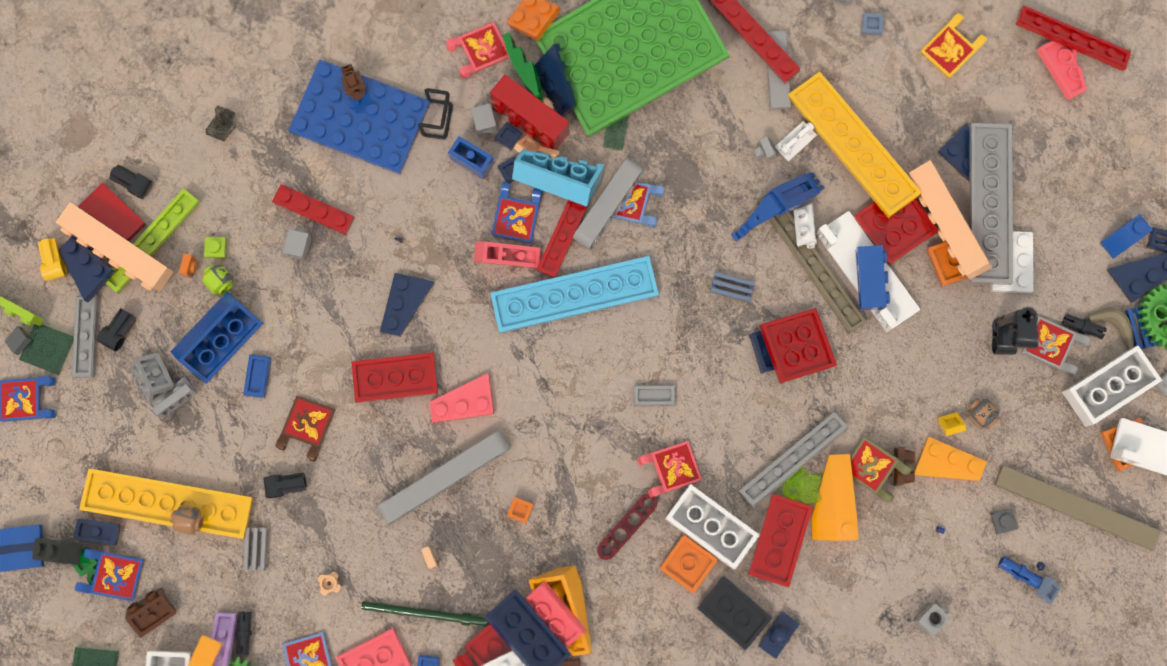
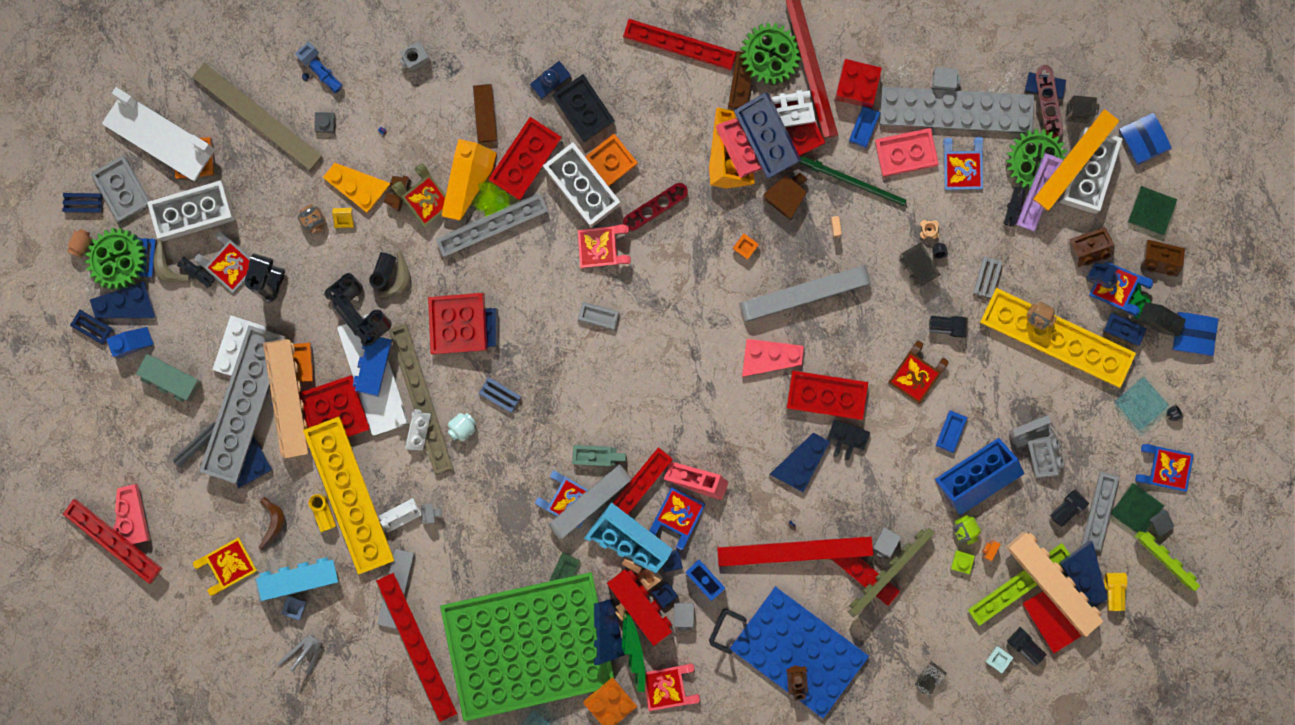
camera: 160 degrees left, 5 degrees up
(26, 457) = (1175, 412): none -> black hinge
(64, 459) = (1141, 403): none -> clear light blue tile
(70, 620) = (1163, 258): none -> reddish brown bracket
(131, 582) = (1103, 274): none -> dark blue tile
(156, 161) = (999, 659): none -> light aqua plate
(281, 221) = (883, 577): none -> olive plate
(312, 563) = (939, 250): none -> black hinge
(330, 540) = (919, 265): none -> clear smoke brick
(362, 343) = (848, 435): none -> black hinge
(387, 211) = (795, 551): none -> red tile
(490, 578) = (787, 195): none -> reddish brown torso
(574, 294) = (644, 426): medium azure plate -> none
(615, 252) = (596, 455): none -> sand green hinge
(761, 242) = (461, 427): none -> light aqua head
(781, 201) = (430, 457): blue hinge -> none
(838, 579) = (484, 113): none -> reddish brown tile
(868, 376) = (402, 280): none -> dark tan piece
(873, 120) = (323, 514): none -> yellow piece
(880, 48) = (295, 580): none -> medium azure wedge
(891, 309) = (372, 325): none -> black piece
(892, 381) = (382, 270): none -> black piece
(917, 101) = (276, 522): none -> reddish brown piece
(1025, 151) = (194, 446): none -> dark grey axle
(1074, 211) = (168, 378): none -> sand green brick

